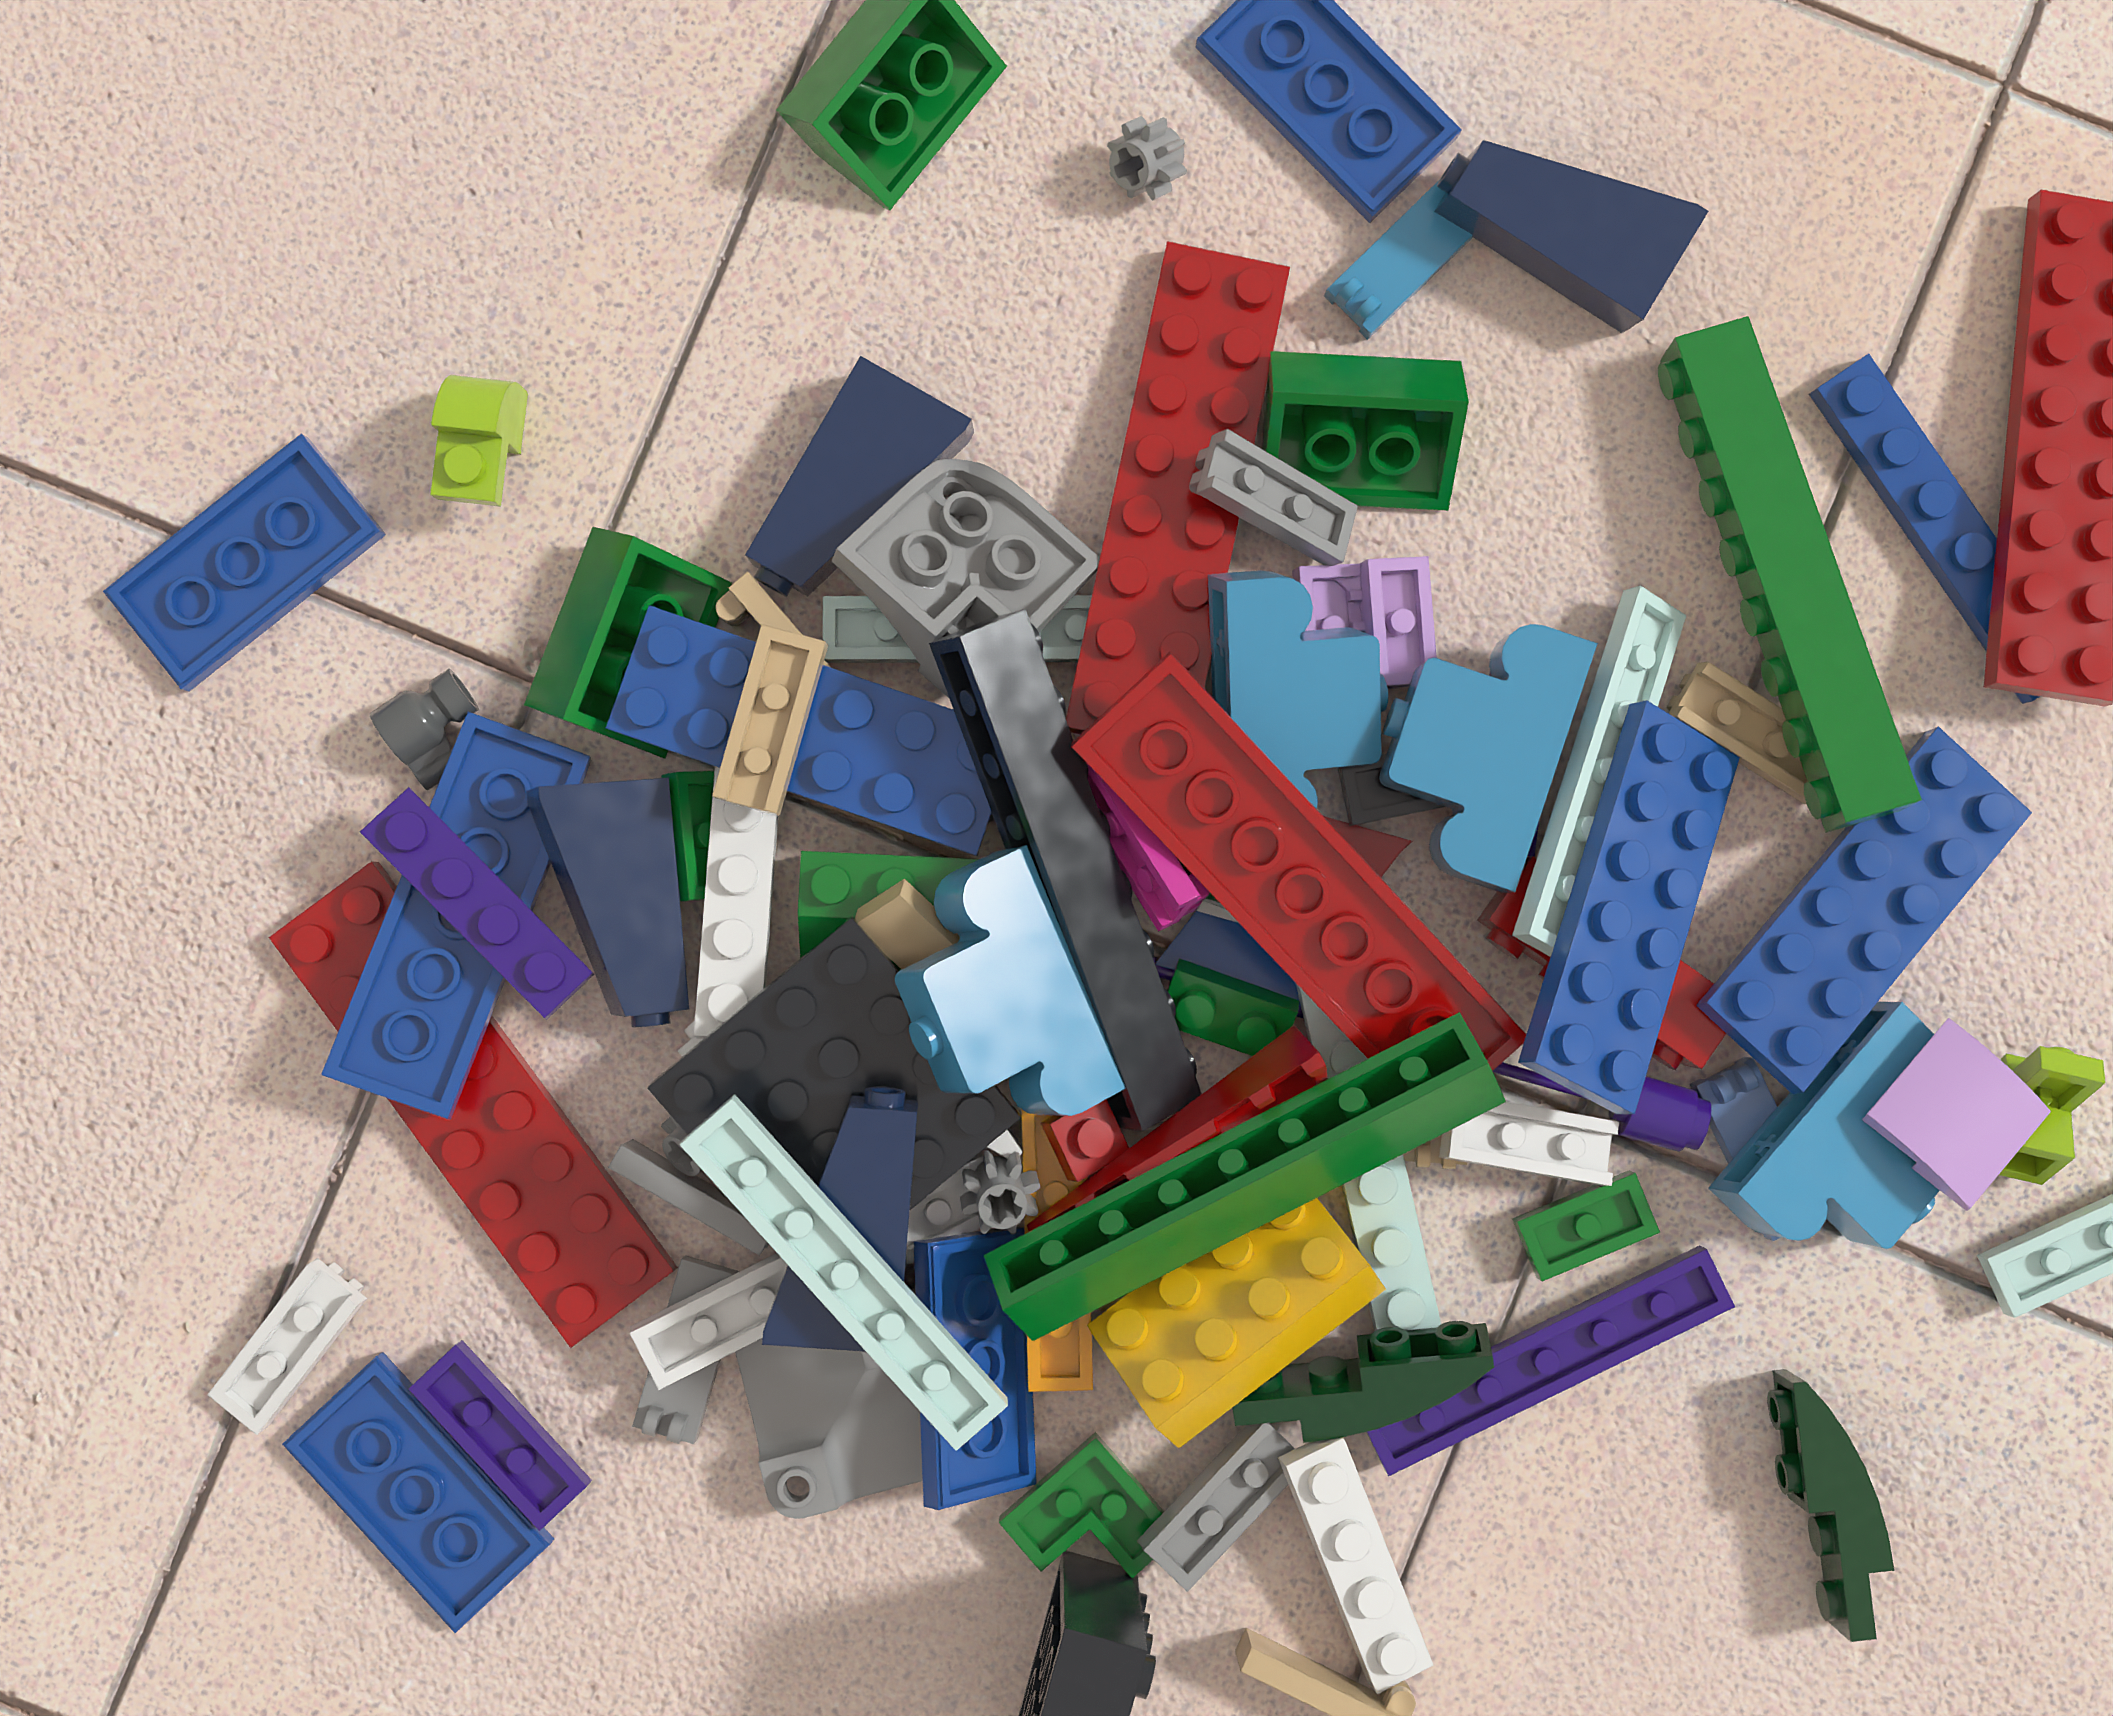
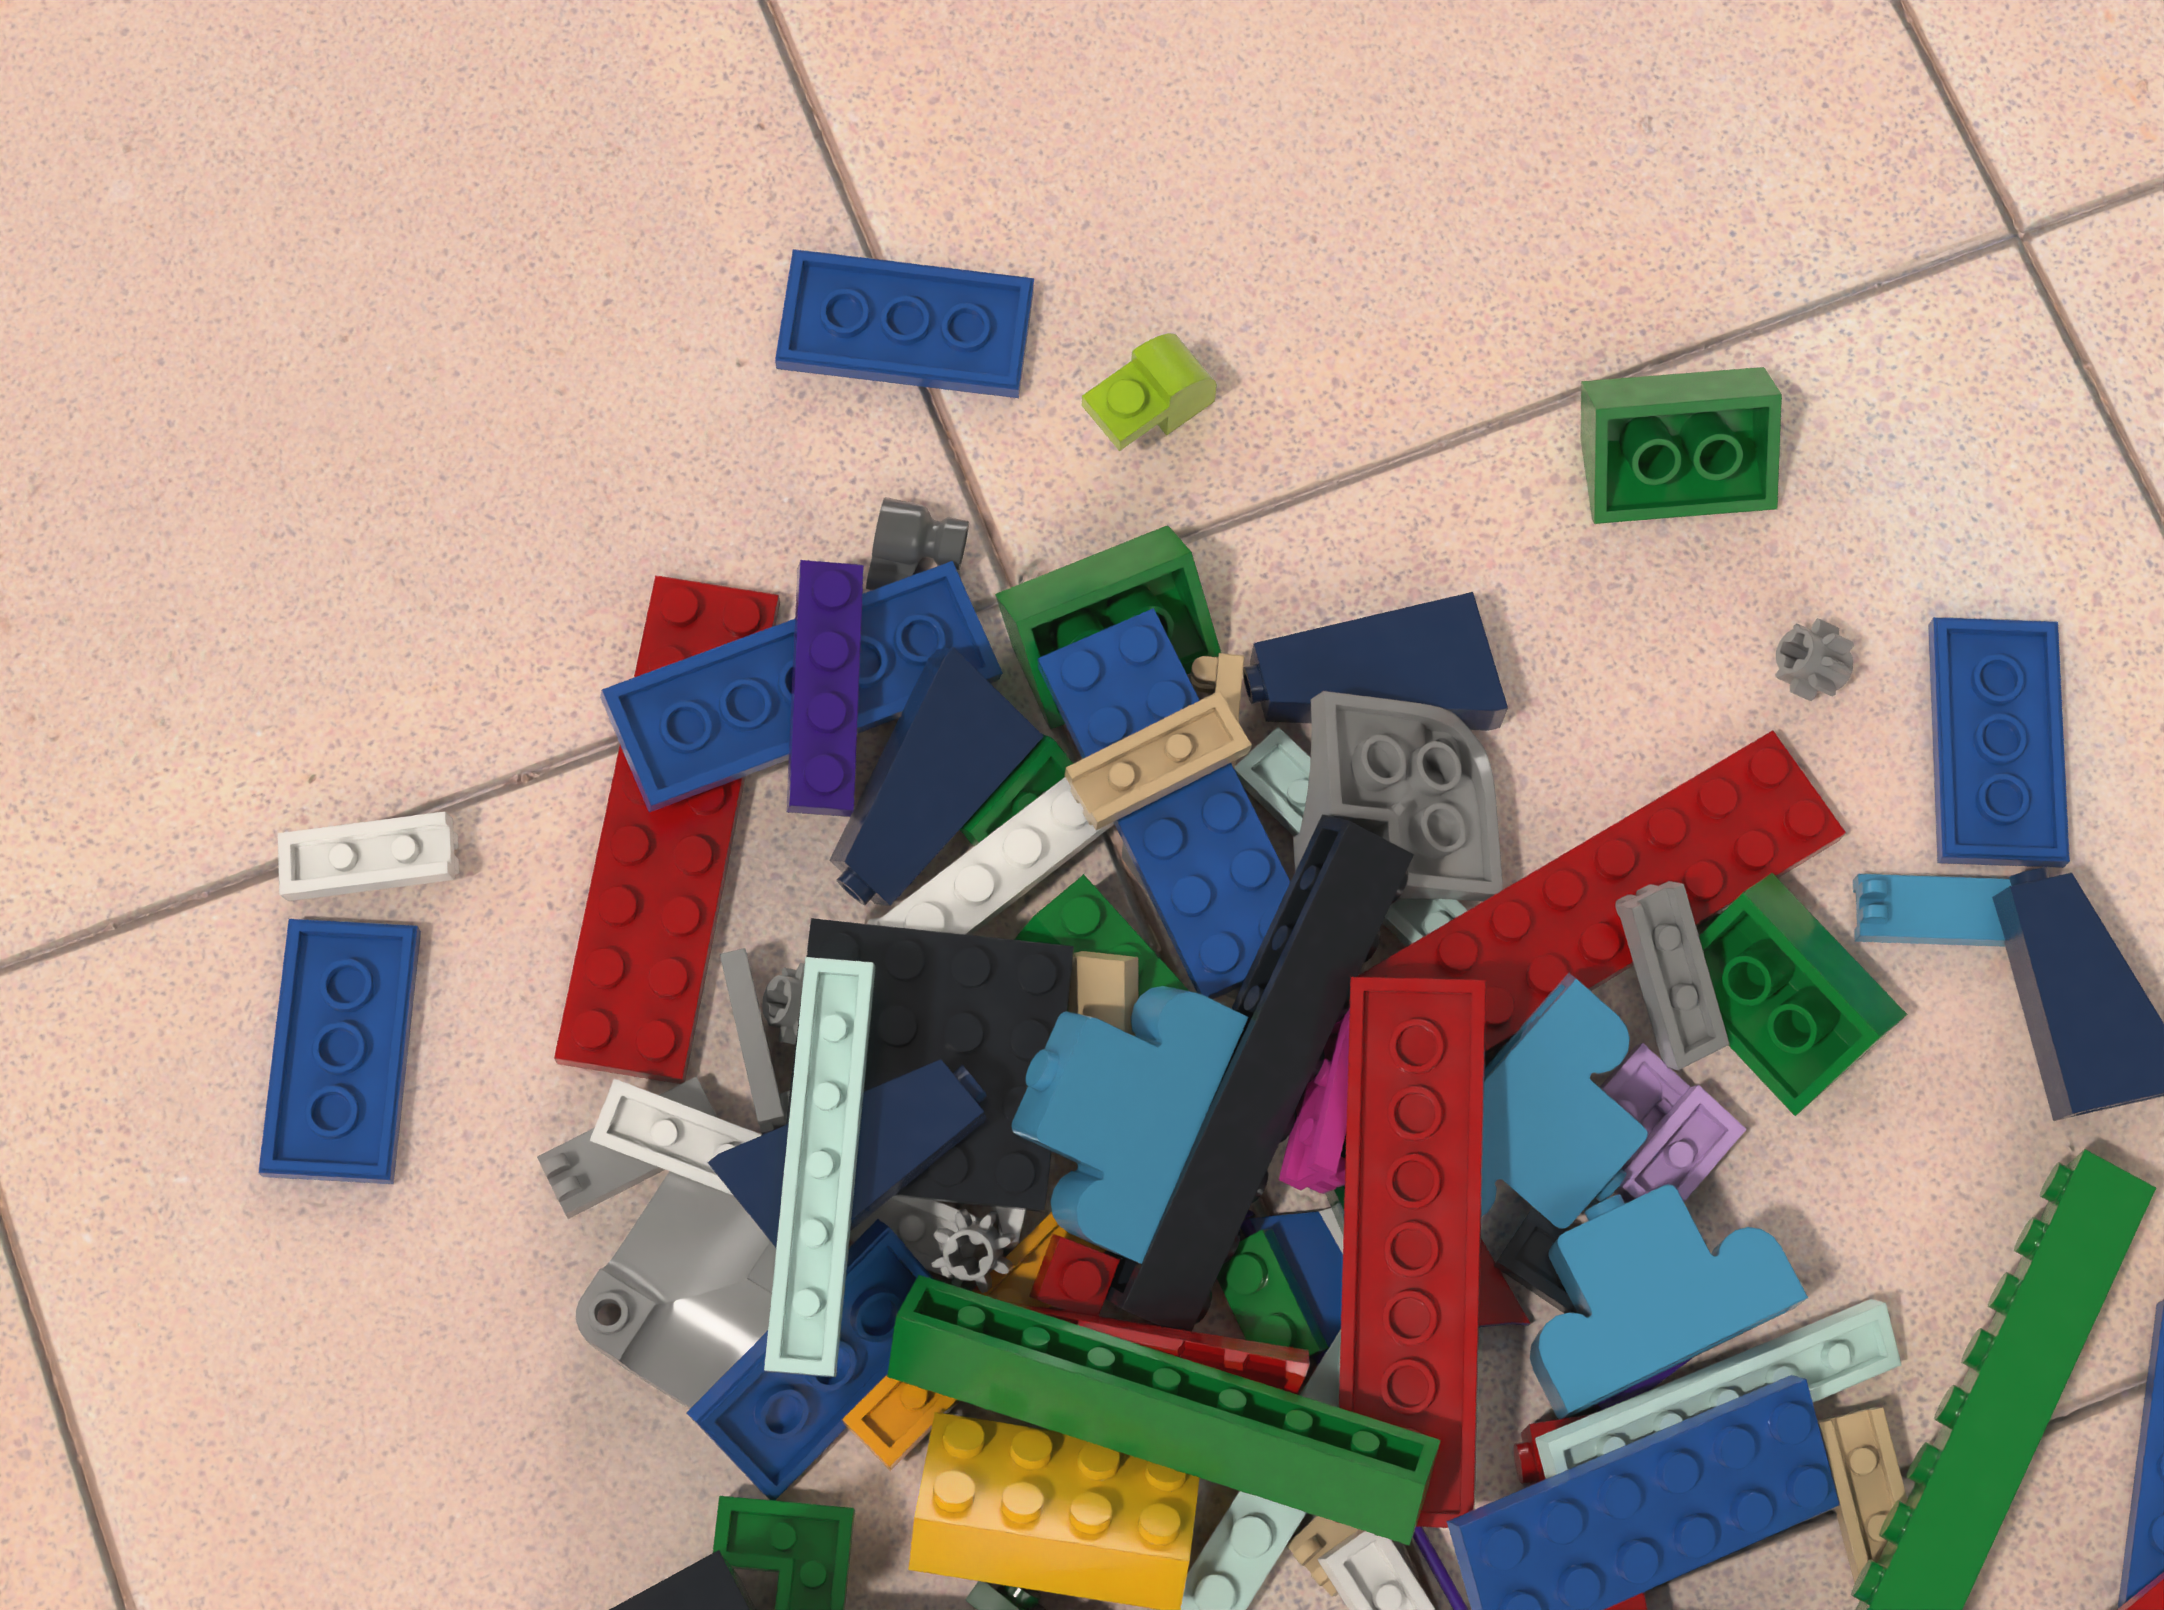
camera: 45 degrees right, 15 degrees down
(500, 1435) = (441, 1068): dark purple plate -> none

